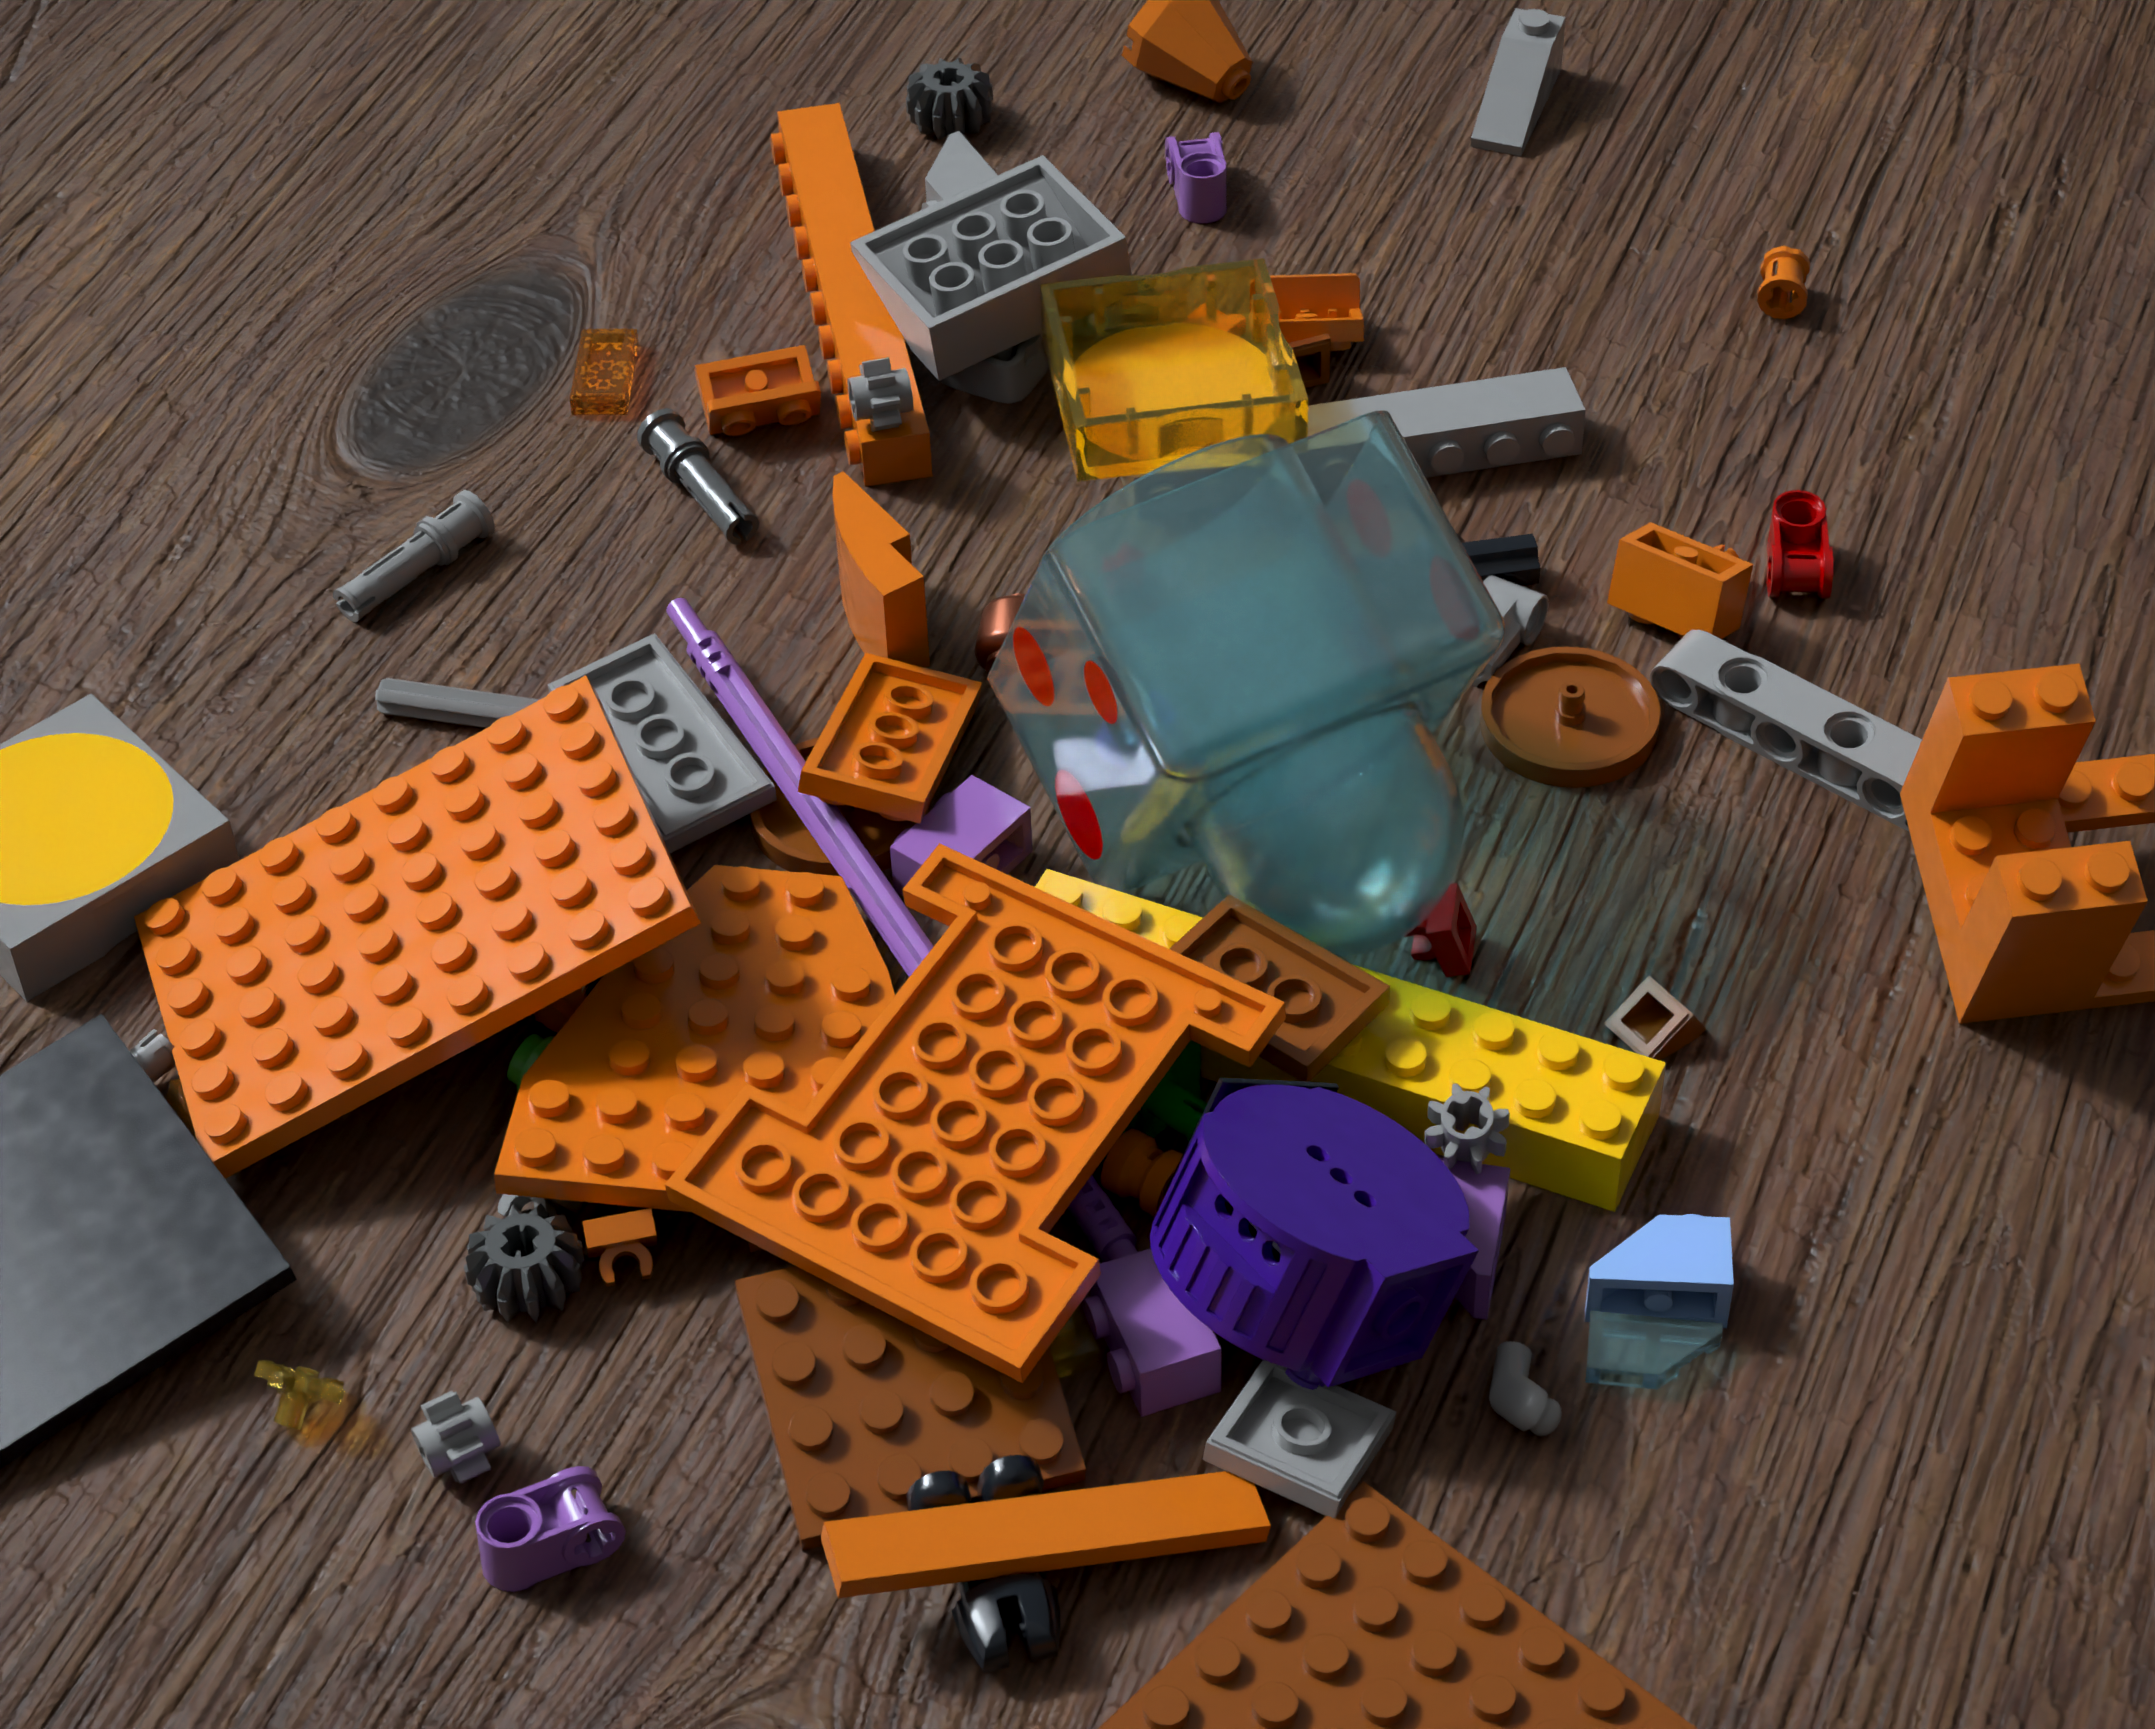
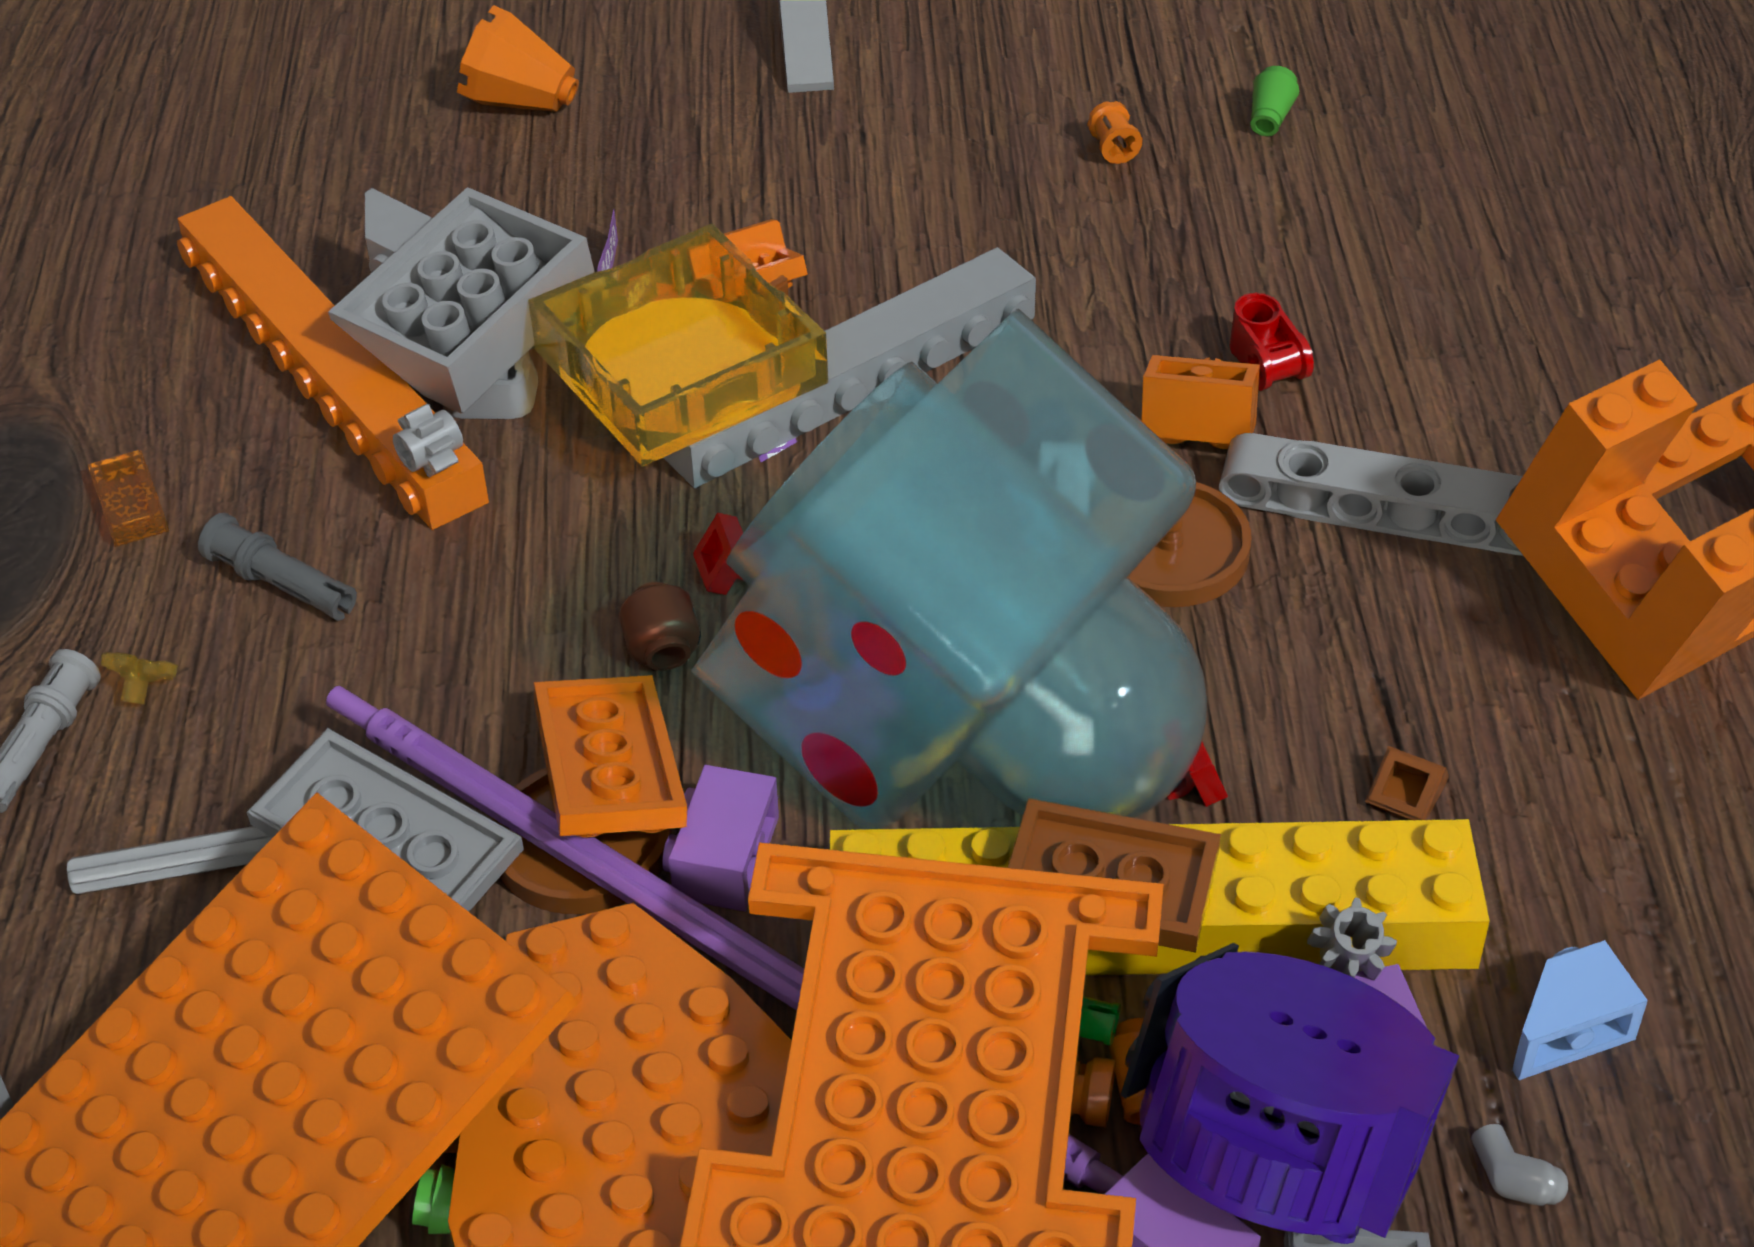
camera: 25 degrees left, 0 degrees up
(525, 535) = (137, 673): none -> clear yellow plant
(758, 391) = (290, 471): orange bracket -> none
(877, 577) = (508, 610): orange slope -> none
(949, 98) = (322, 167): dark grey gear -> none
(1189, 253) = (608, 255): none -> medium lavender sticker
(1198, 177) = (580, 175): medium lavender piece -> none
(1644, 1348) = (1586, 1087): clear light blue tile -> none
(1984, 293) = (1272, 99): none -> bright green cone

